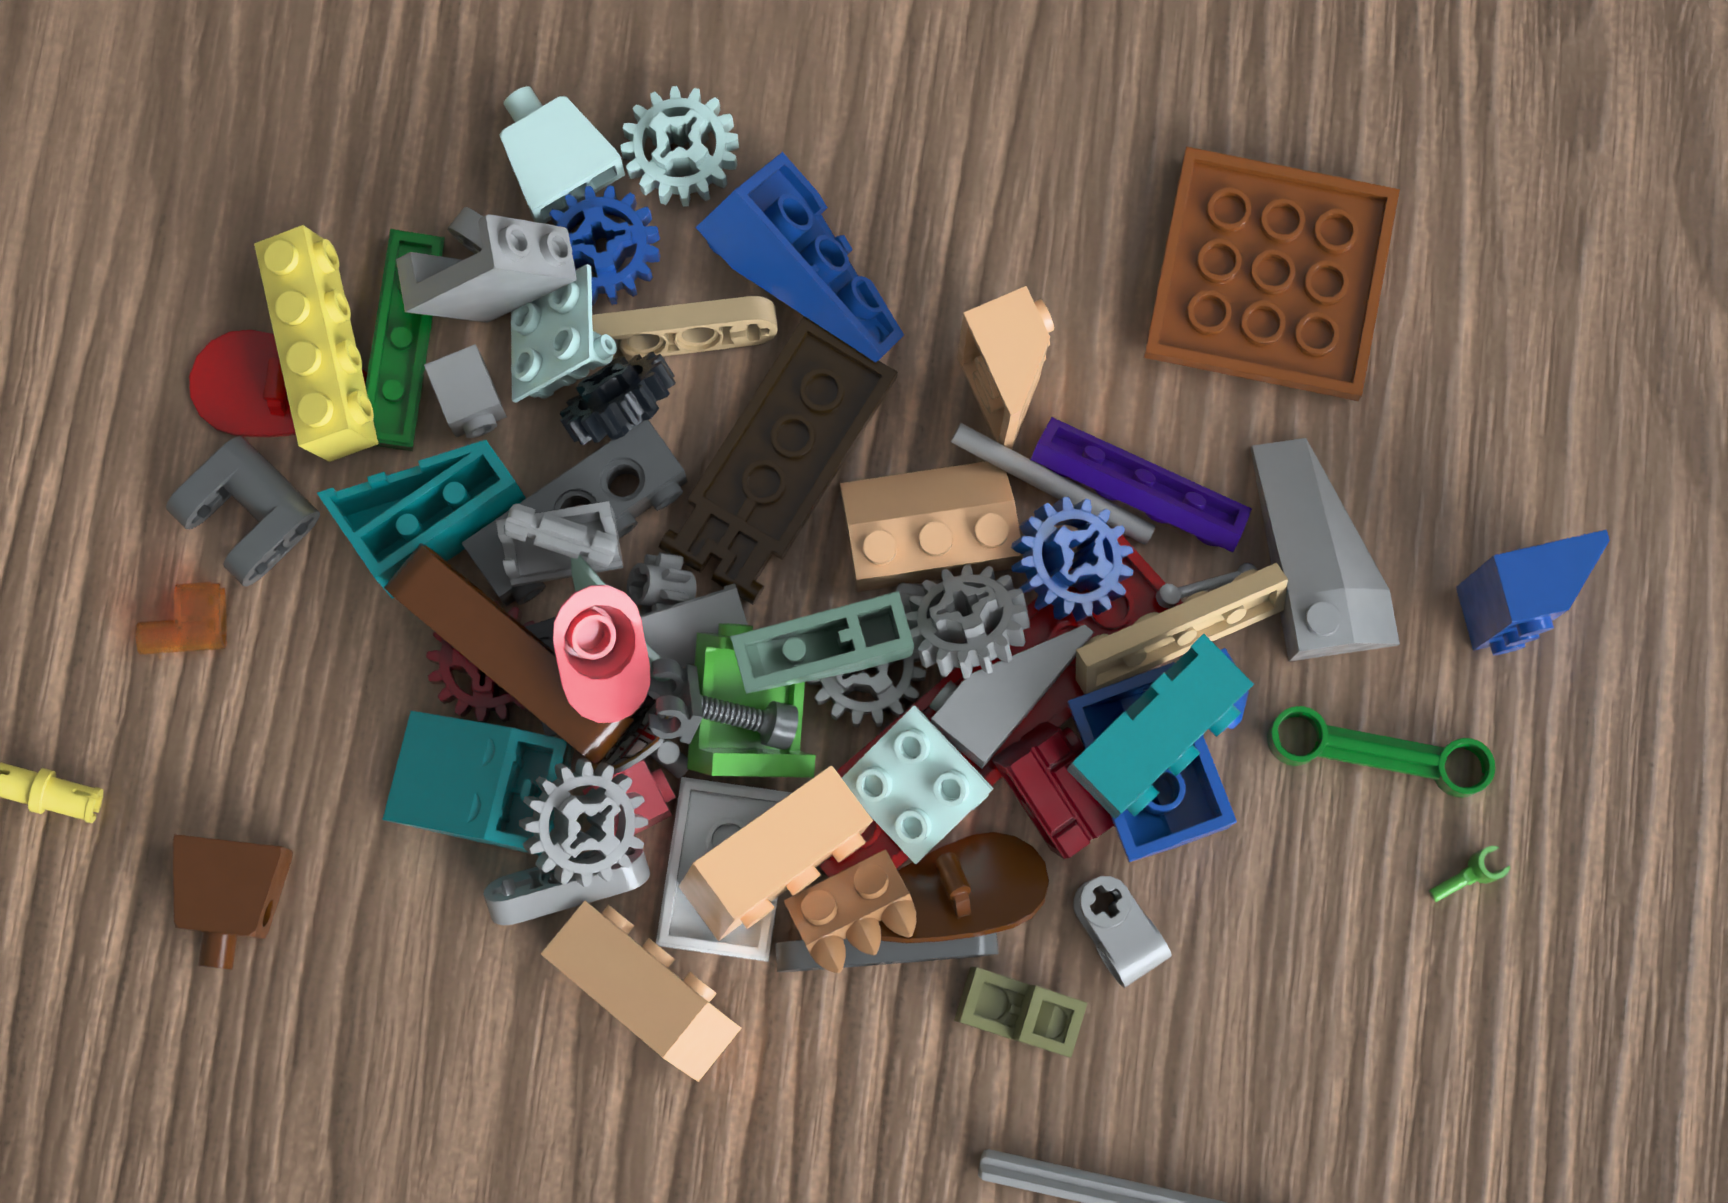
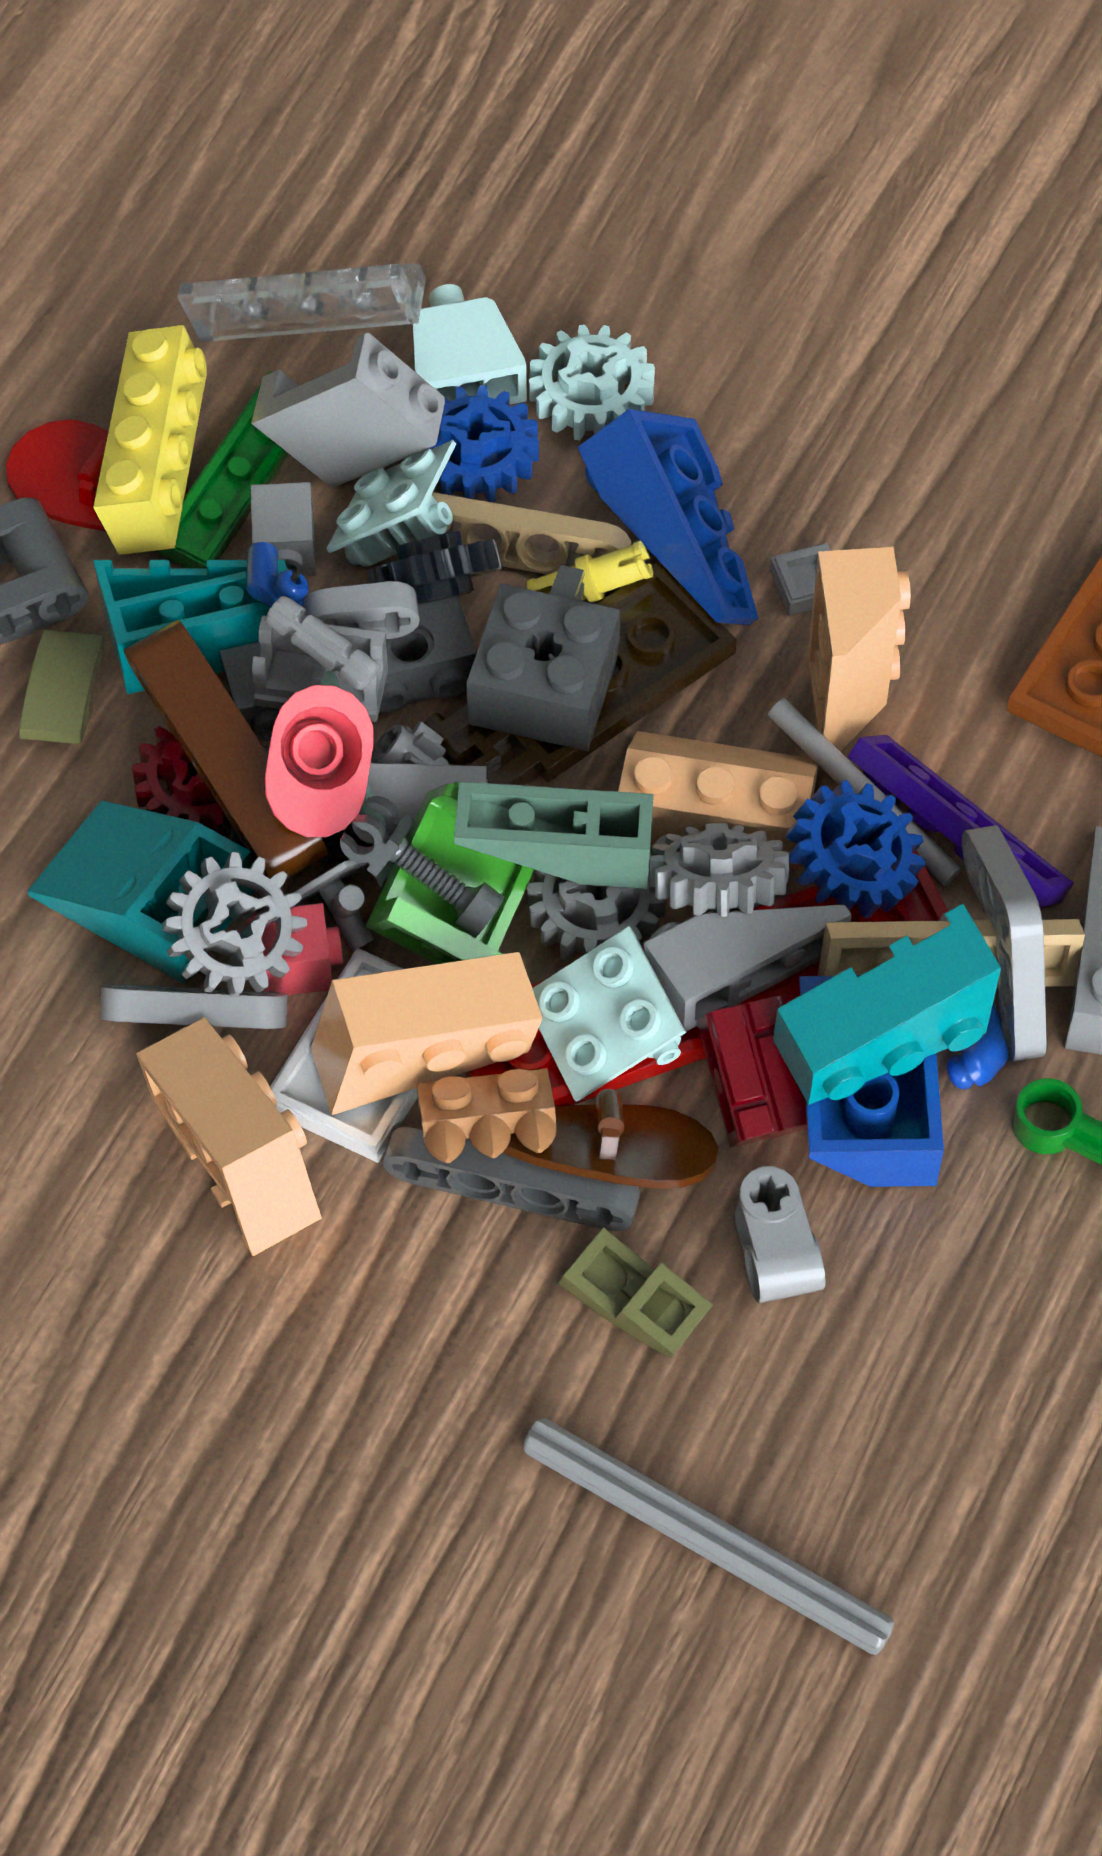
camera: 20 degrees right, 20 degrees down
(332, 611) = (61, 687): none -> olive slope
(397, 149) = (304, 302): none -> clear fence
(484, 479) = (265, 582): none -> blue arm
(573, 474) = (372, 606): none -> light grey beam
(742, 432) = (544, 663): none -> dark grey hinge
(751, 354) = (604, 572): none -> light yellow pin
(933, 281) = (795, 577): none -> light grey tile
(1238, 603) = (1020, 938): none -> light grey beam

